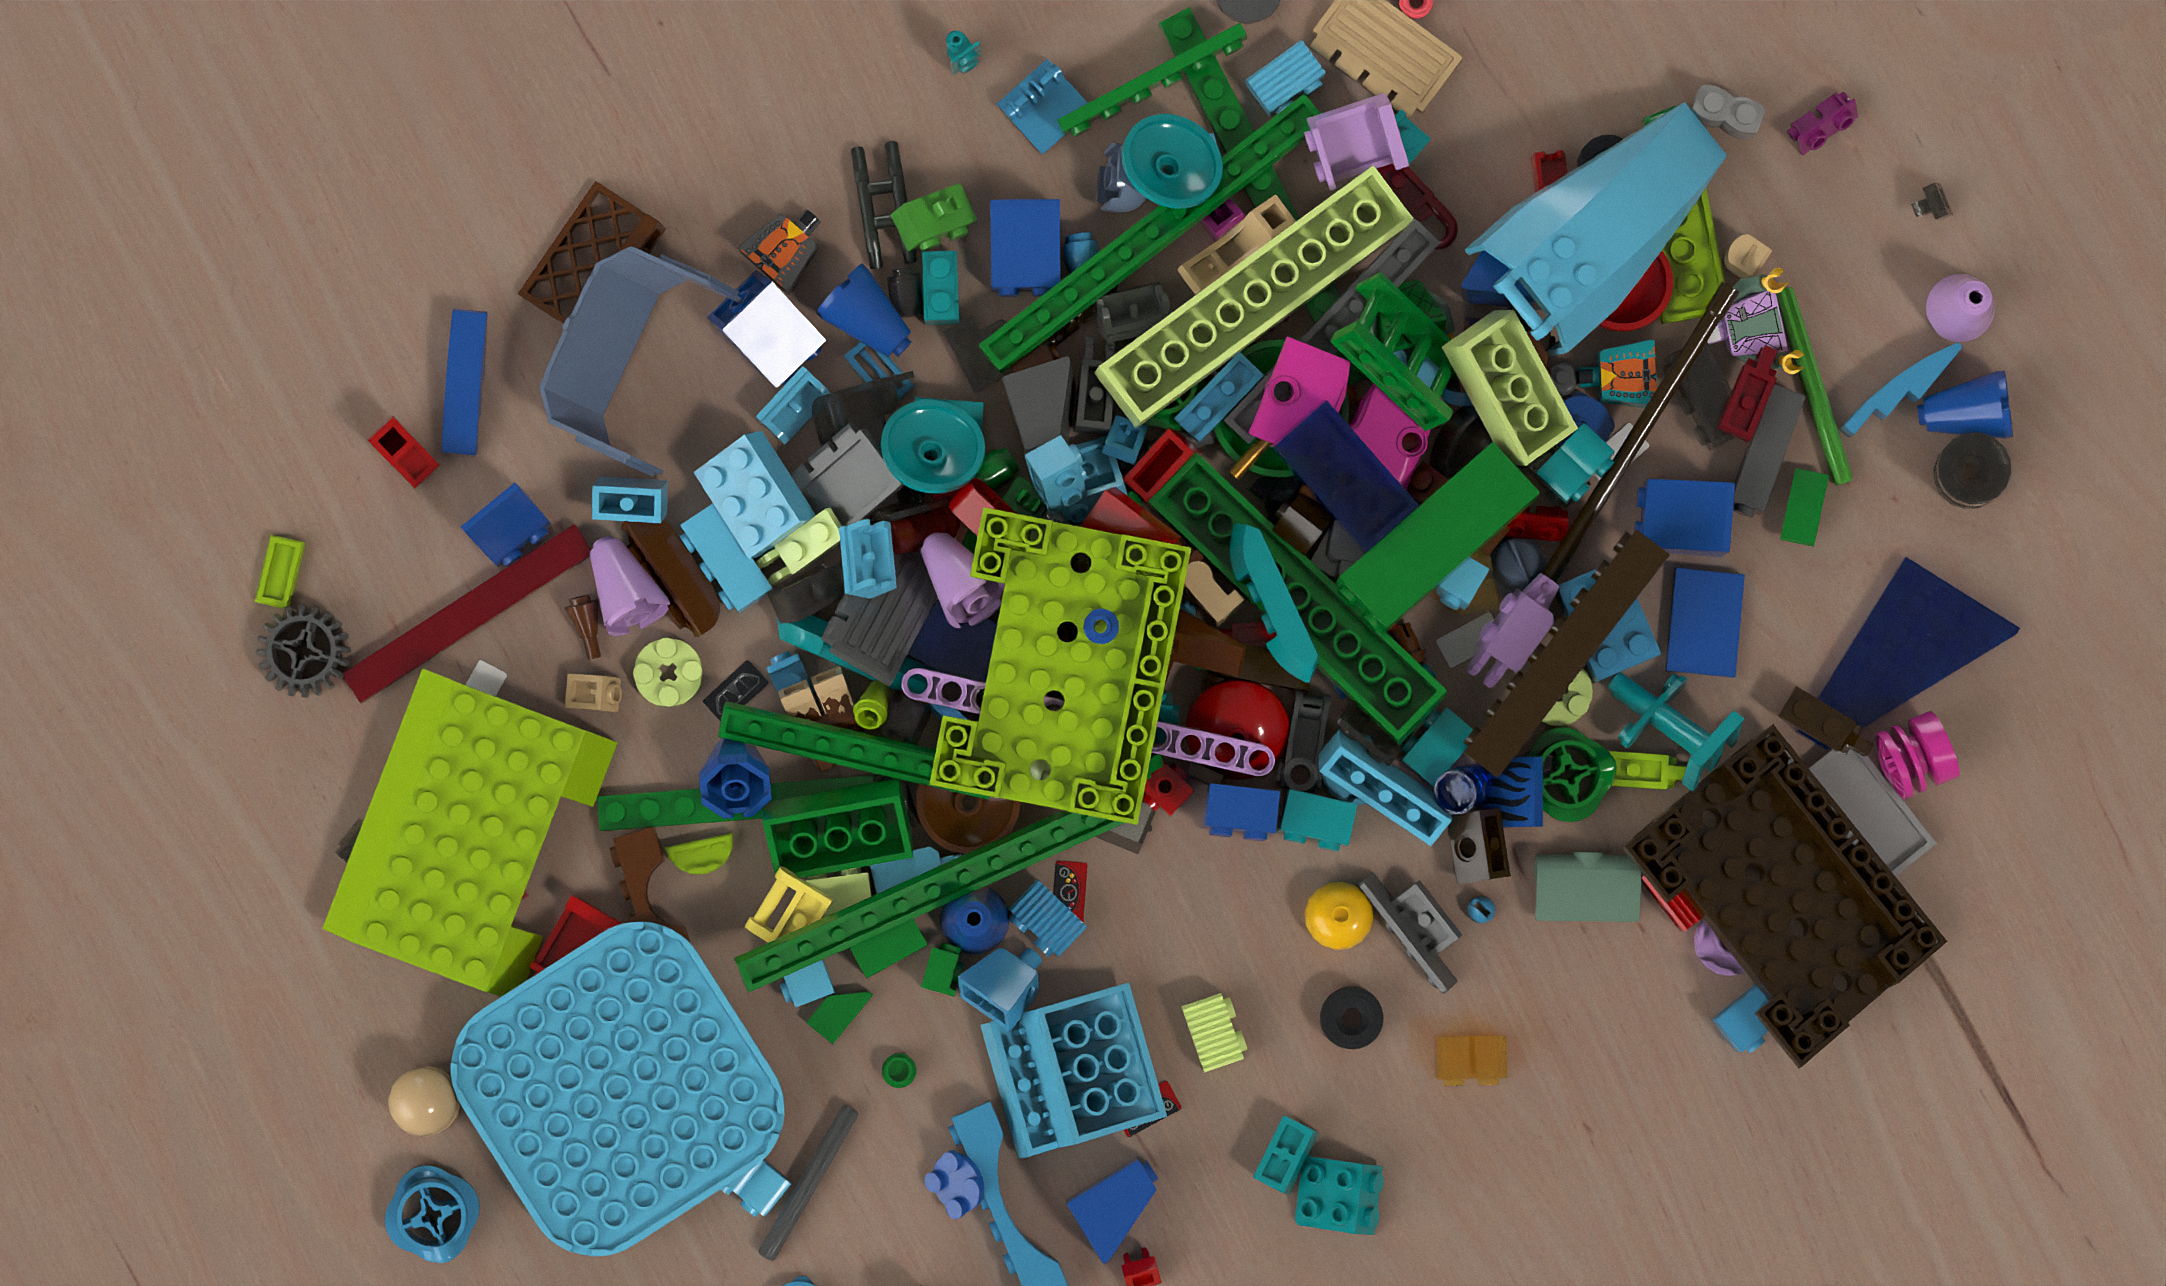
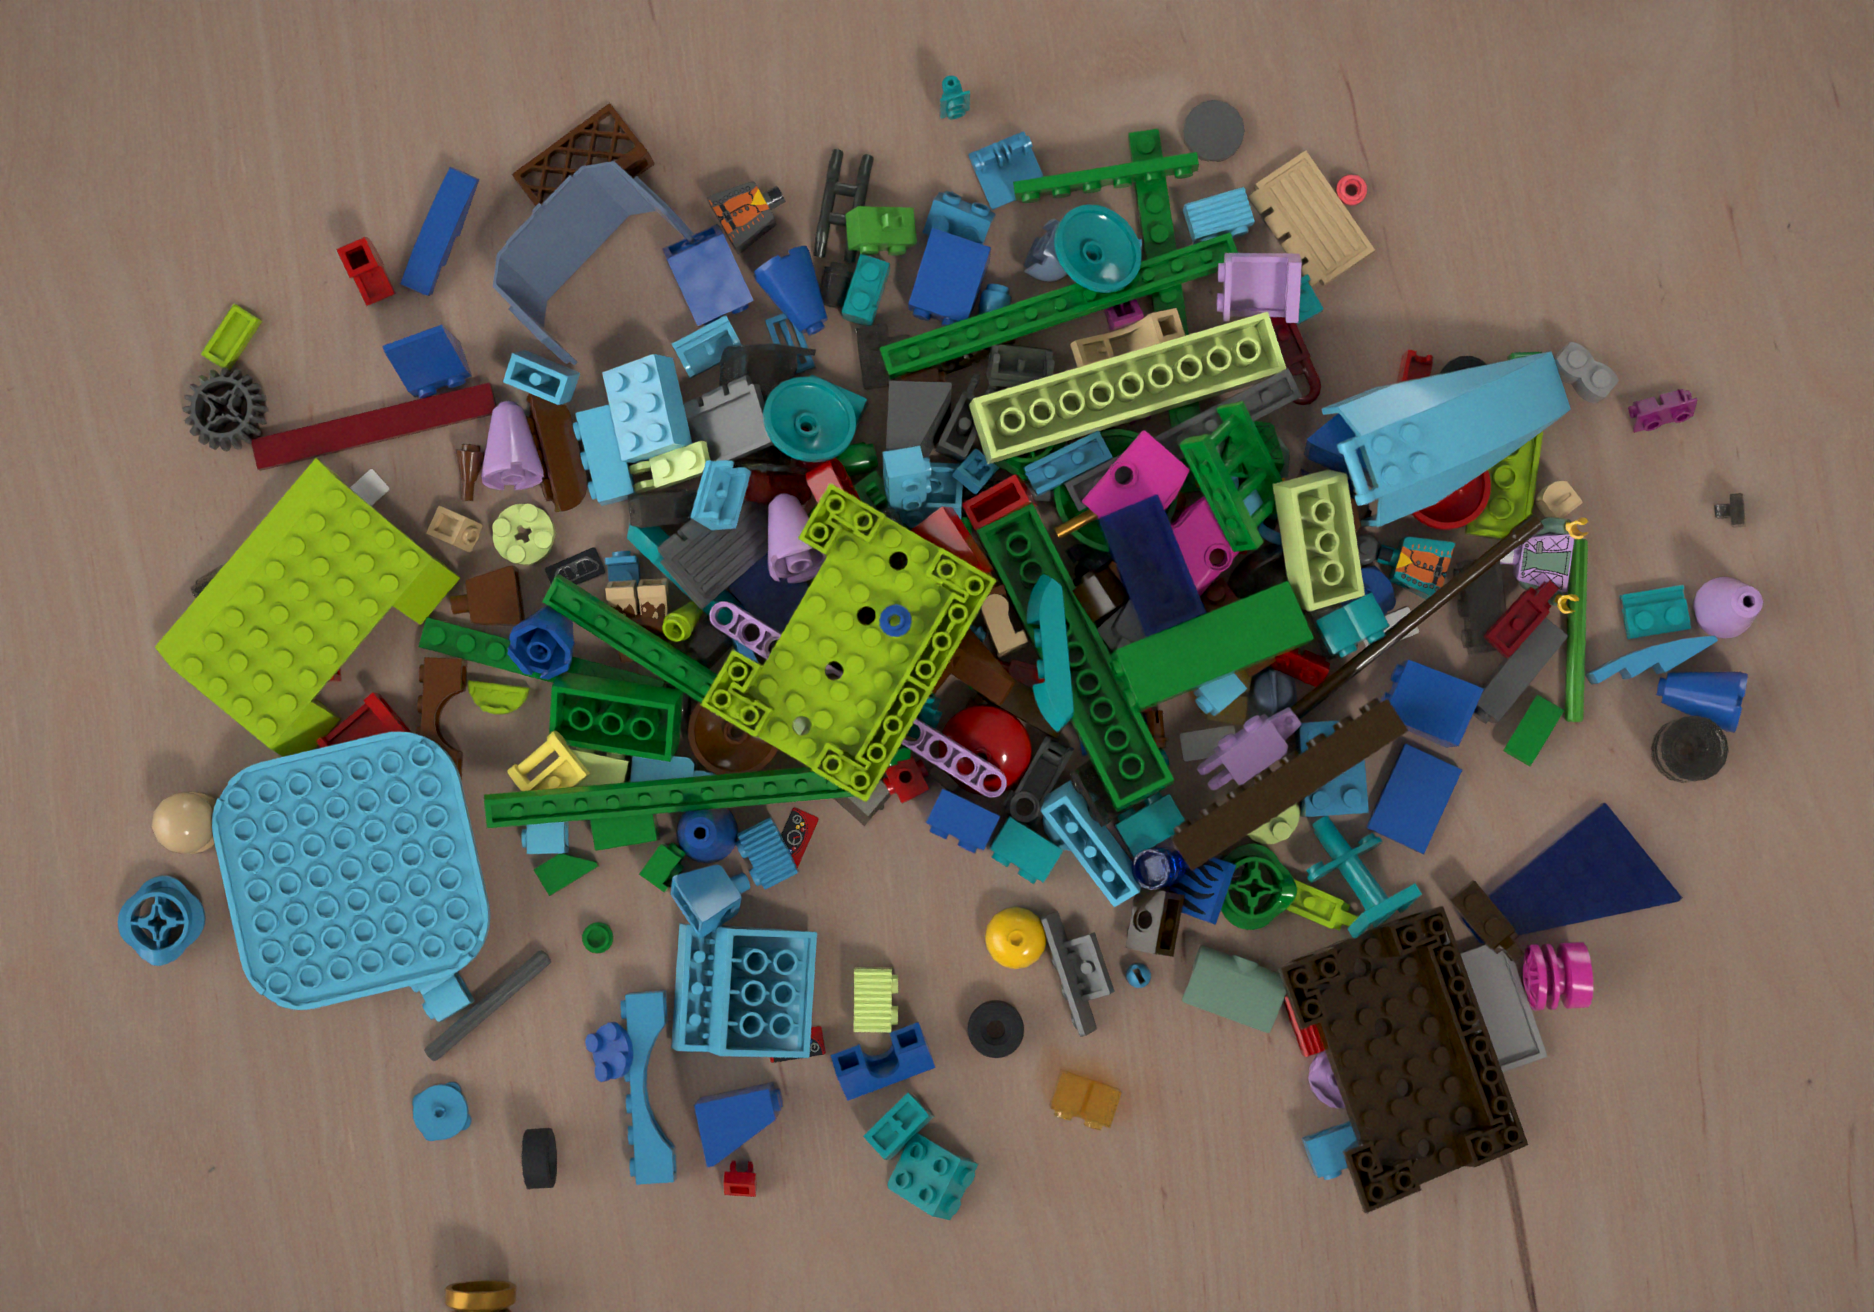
camera: 30 degrees right, 0 degrees up
(660, 753) = (492, 598): none -> reddish brown torso
(1012, 176) = (959, 217): none -> dark azure bracket
(1267, 1082) = (866, 1073): none -> blue arch
(1889, 337) = (1655, 612): none -> teal plate

